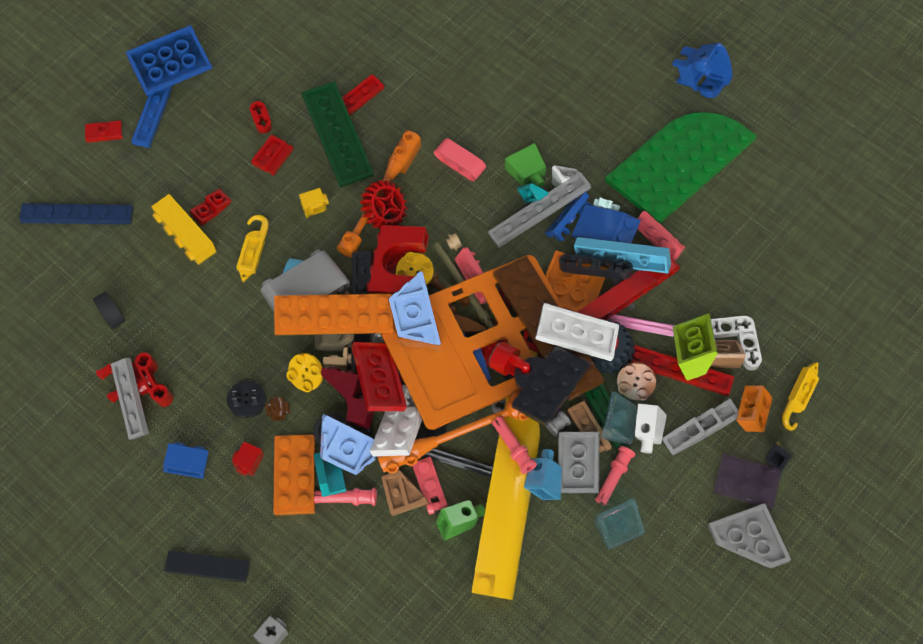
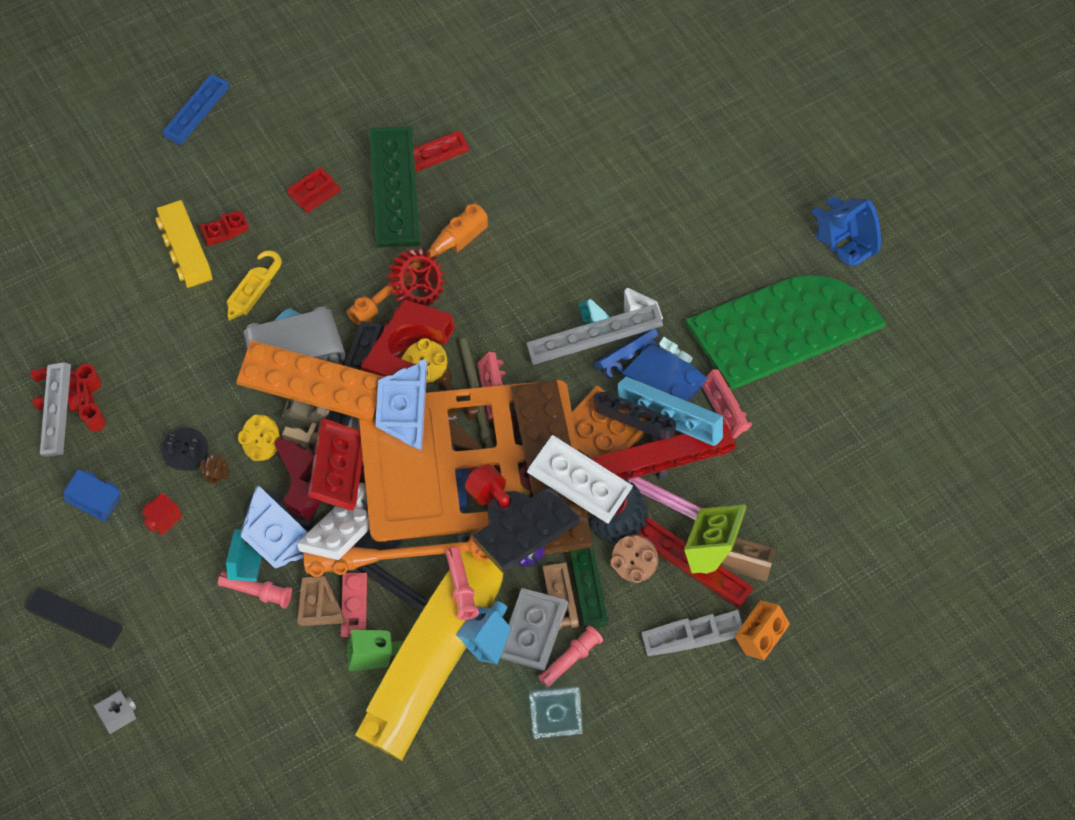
camera: 15 degrees right, 5 degrees down
(76, 213) = (74, 194): dark blue plate -> none
(103, 131) = (136, 113): red plate -> none
(108, 310) = (68, 307): black tyre -> none
(168, 60) = (234, 54): blue slope -> none
(263, 116) = (321, 144): red beam -> none
(294, 475) = (206, 547): orange plate -> none
(313, 202) = (339, 254): yellow window -> none
(453, 242) = (483, 343): tan plate -> none
(459, 159) = (525, 253): coral beam -> none
(527, 166) = (599, 282): bright green torso -> none
(558, 423) = (526, 579): light grey bush -> none
(620, 420) = (597, 594): clear light blue slope -> none
(649, 426) = (630, 612): white torso -> none
(742, 334) = (782, 541): white beam -> none
(747, 481) = (725, 711): clear purple plate -> none
(751, 536) = (705, 773): light grey plate -> none
(779, 456) = (769, 691): black slope -> none
(800, 394) = (825, 630): yellow plate -> none

